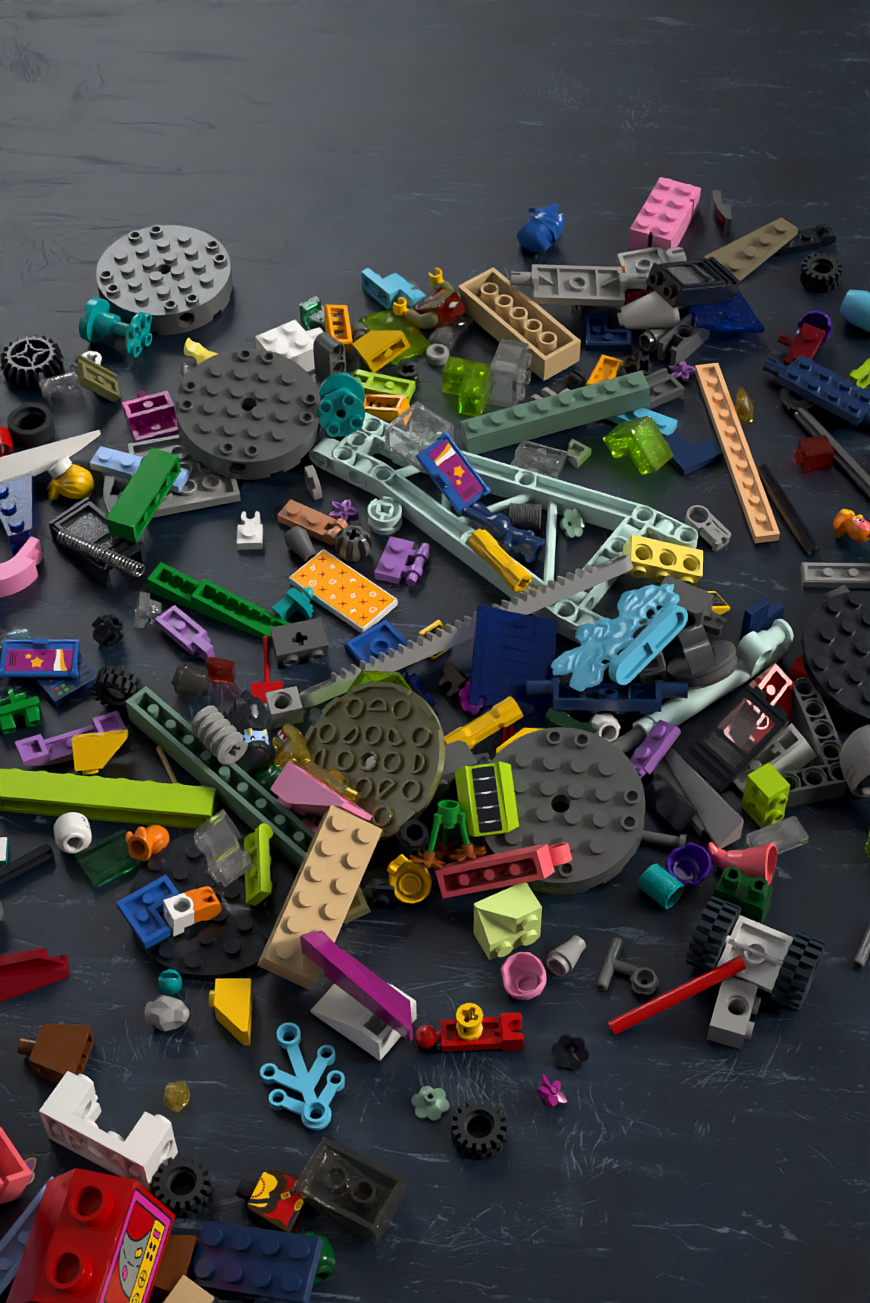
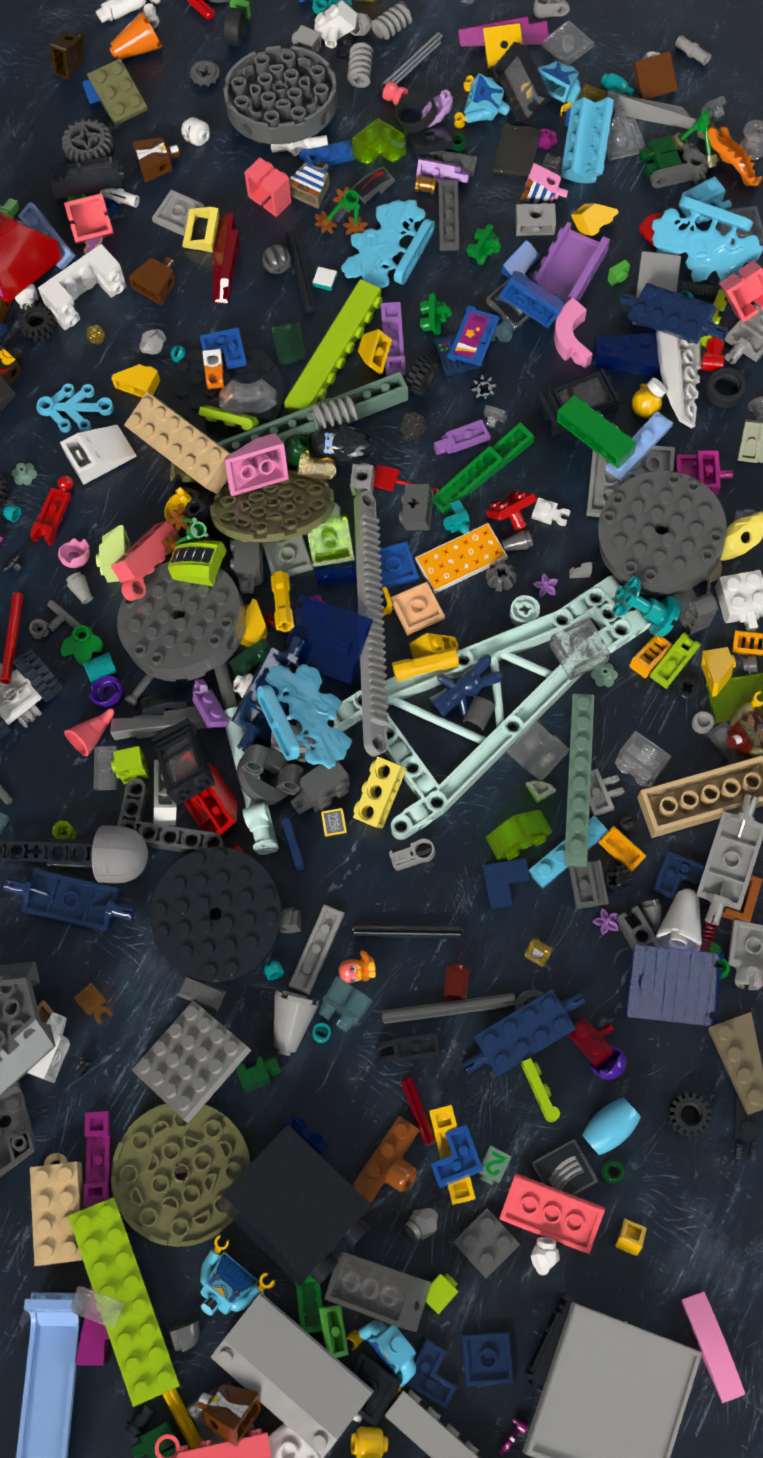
camera: 115 degrees right, 20 degrees up
(72, 832) = (312, 322): white head -> none
(96, 556) = (546, 391): dark grey piece -> none
(110, 492) = (623, 421): dark grey slope -> none
(147, 841) = (284, 365): orange animal -> none
(221, 670) = (415, 450): clear red tile -> none
(269, 557) = (511, 507): none -> red plate
(314, 522) = (542, 559): nougat plate -> none
(334, 781) = (268, 478): clear yellow plate -> none
(359, 982) = (101, 438): magenta wedge -> none
(395, 560) = (478, 606): medium lavender plate -> none
(424, 606) = (417, 608): none -> light nougat plate
(453, 676) = (338, 600): dark brown tile -> none
(454, 472) = (526, 665): door -> none
(469, 382) = (653, 729): clear neon green brick -> none
(469, 575) = (431, 644): none -> yellow slope
(471, 1023) = (55, 498): yellow bush -> none
(498, 1085) = (12, 512): none -> teal hinge
(572, 523) = (457, 748): sand green plant -> none
(642, 923) = (81, 648): none -> green plate
(693, 282) = (692, 961): black door -> none
(737, 454) = (489, 919): light nougat plate -> none
(746, 892) = (67, 709): dark green hips -> none

